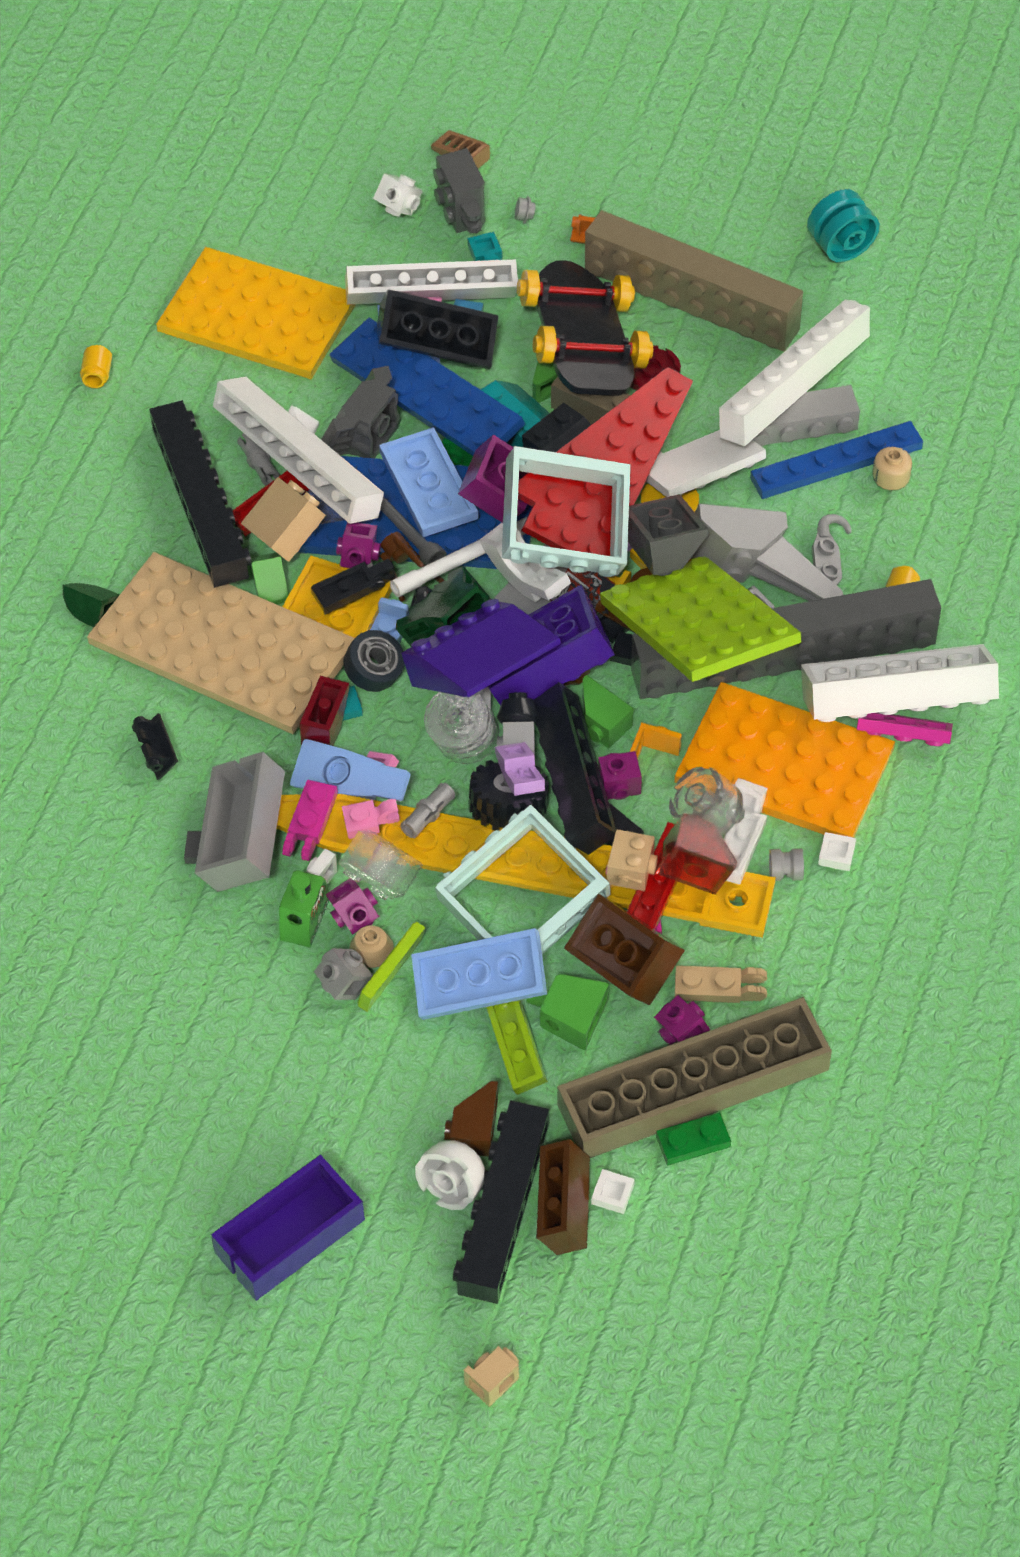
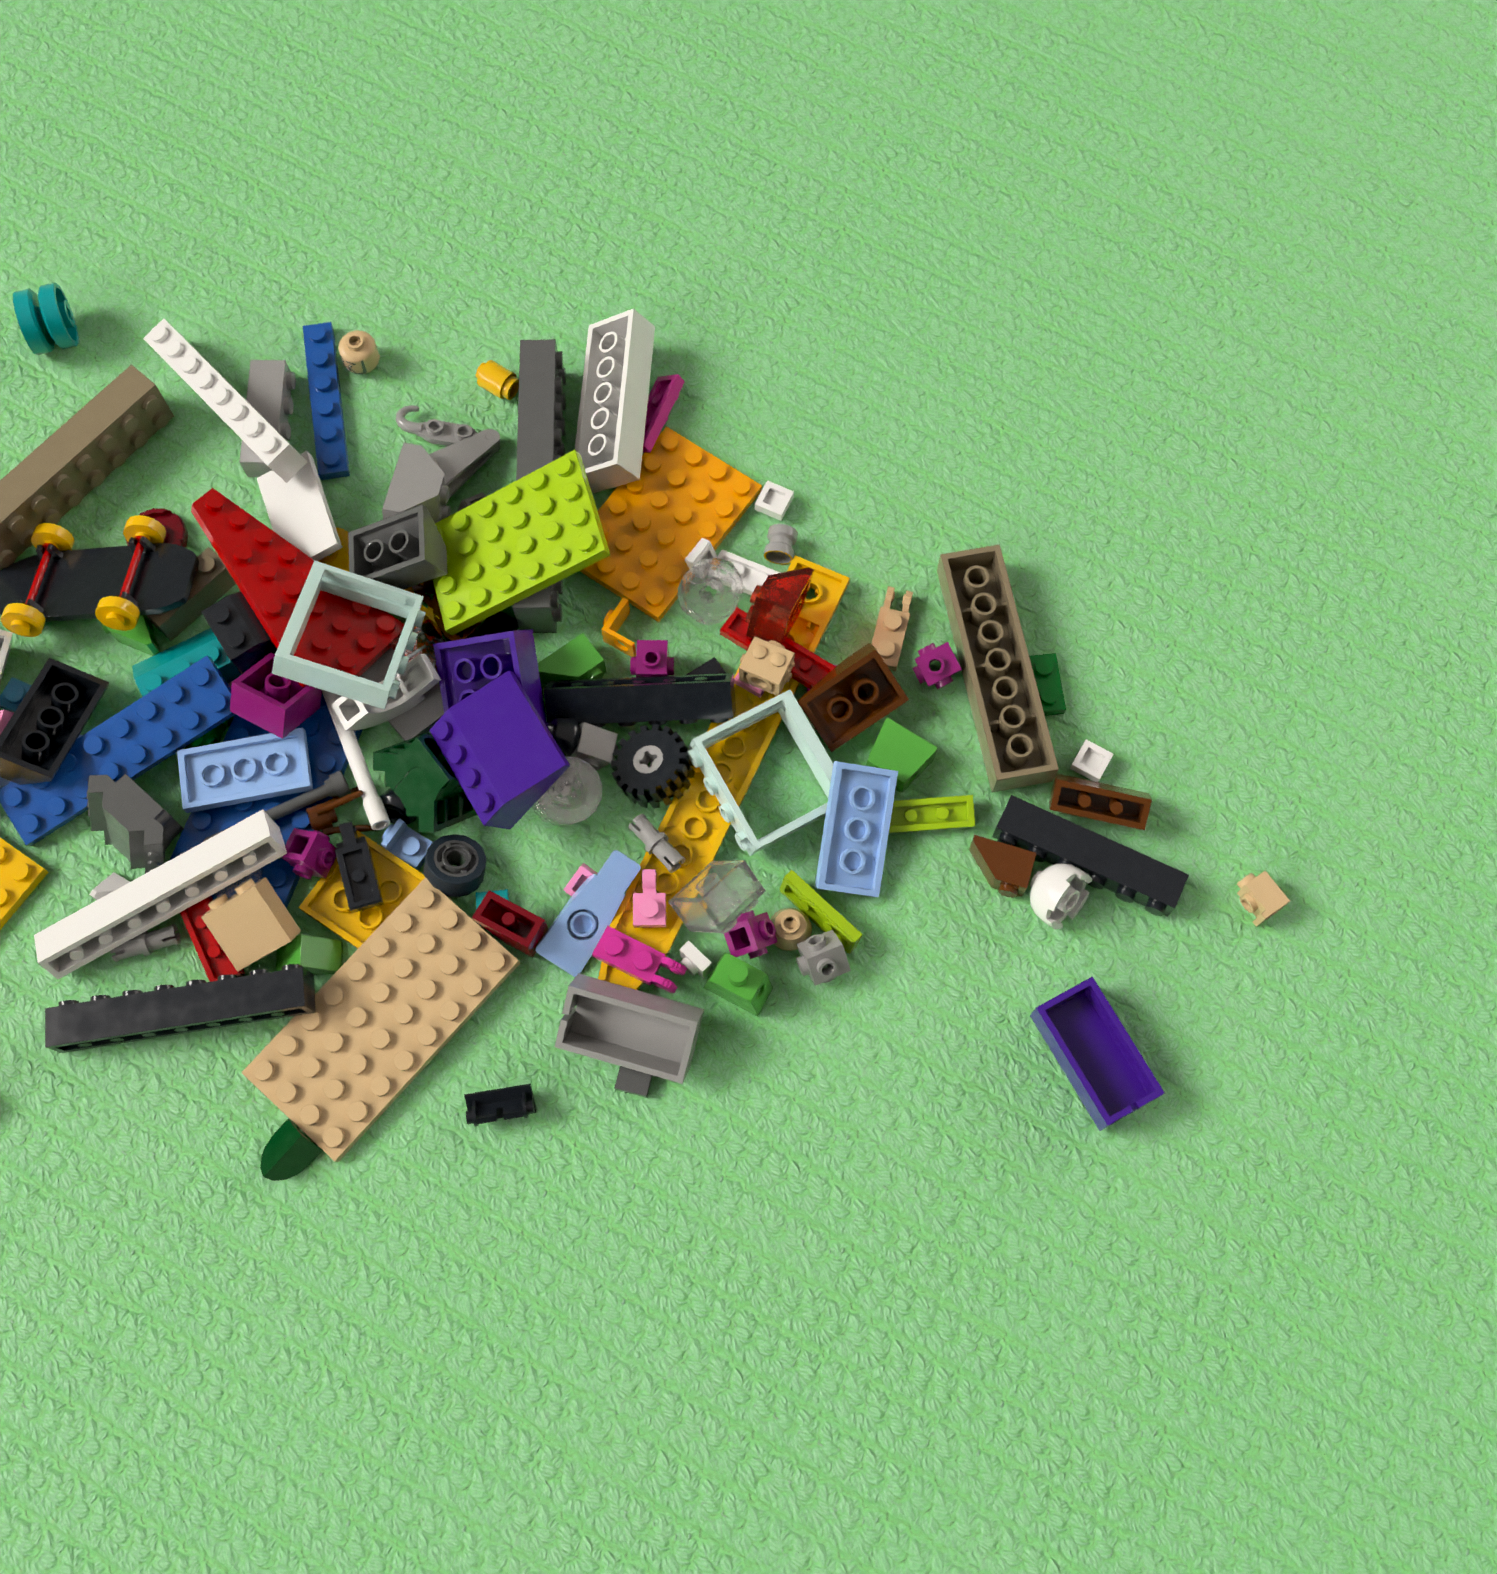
camera: 80 degrees left, 15 degrees up
(519, 768) = (633, 747): lavender slope -> none

